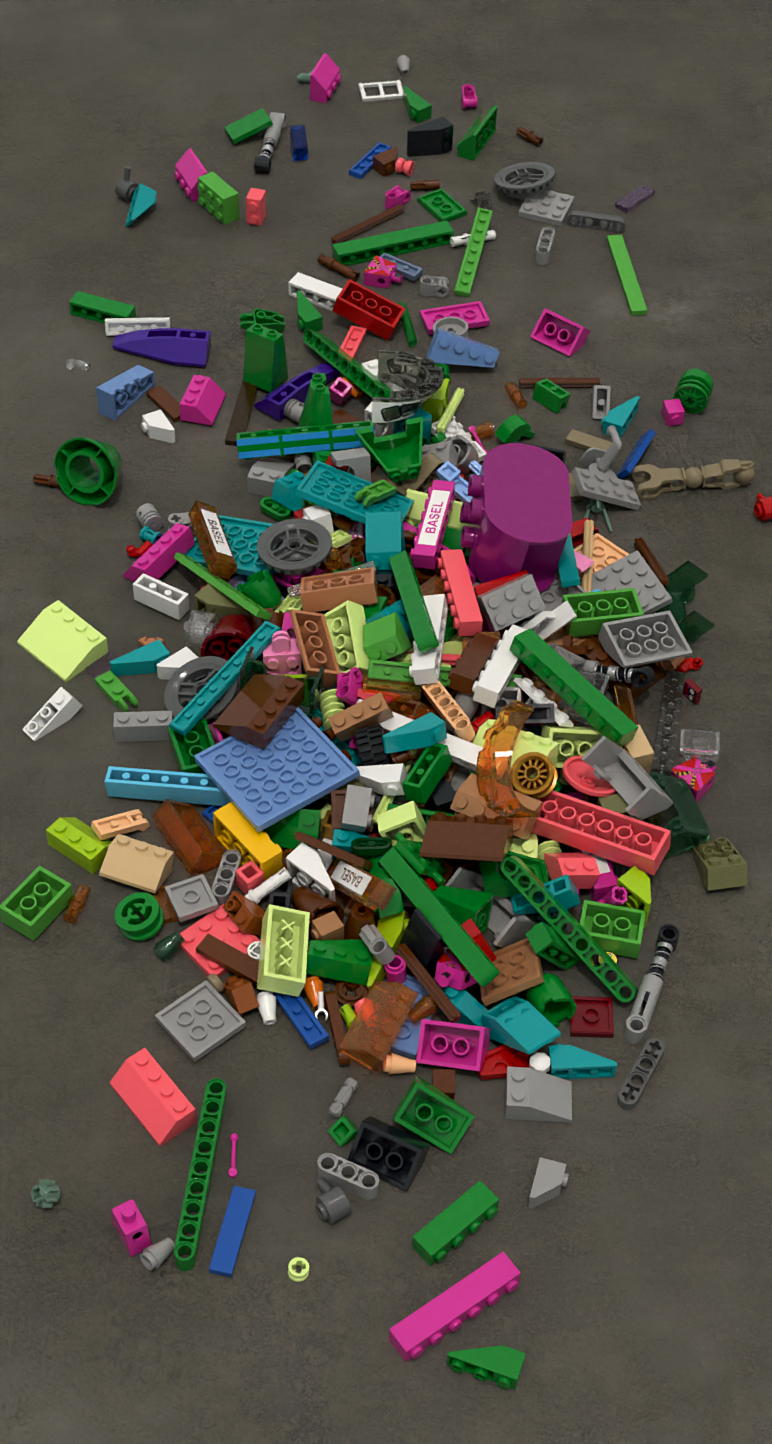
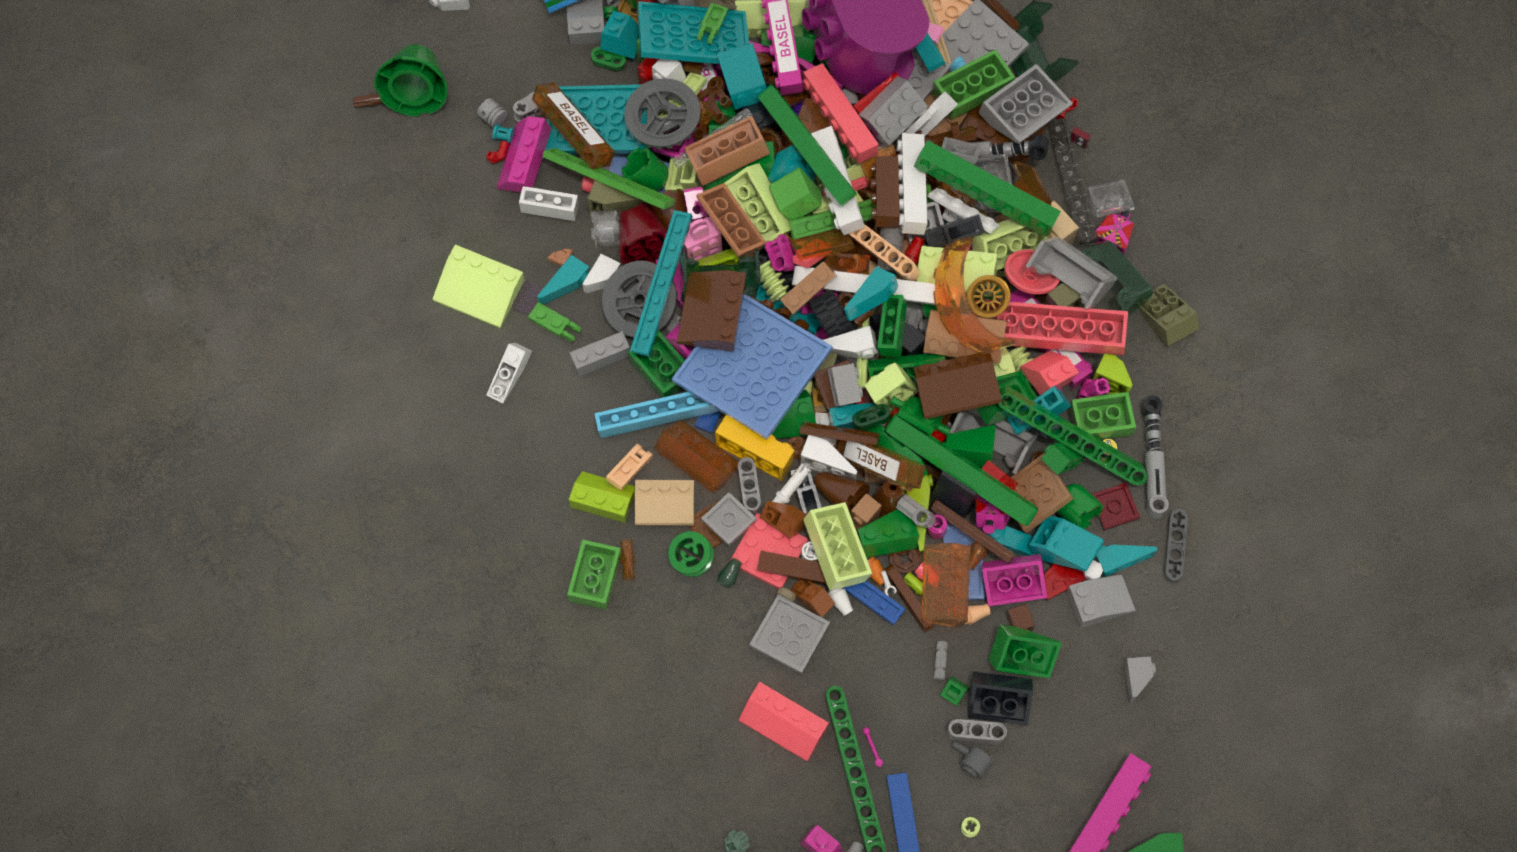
camera: 20 degrees left, 20 degrees up
(248, 877) = (771, 481): coral brick -> none
(455, 1223) = (1080, 740): green brick -> none

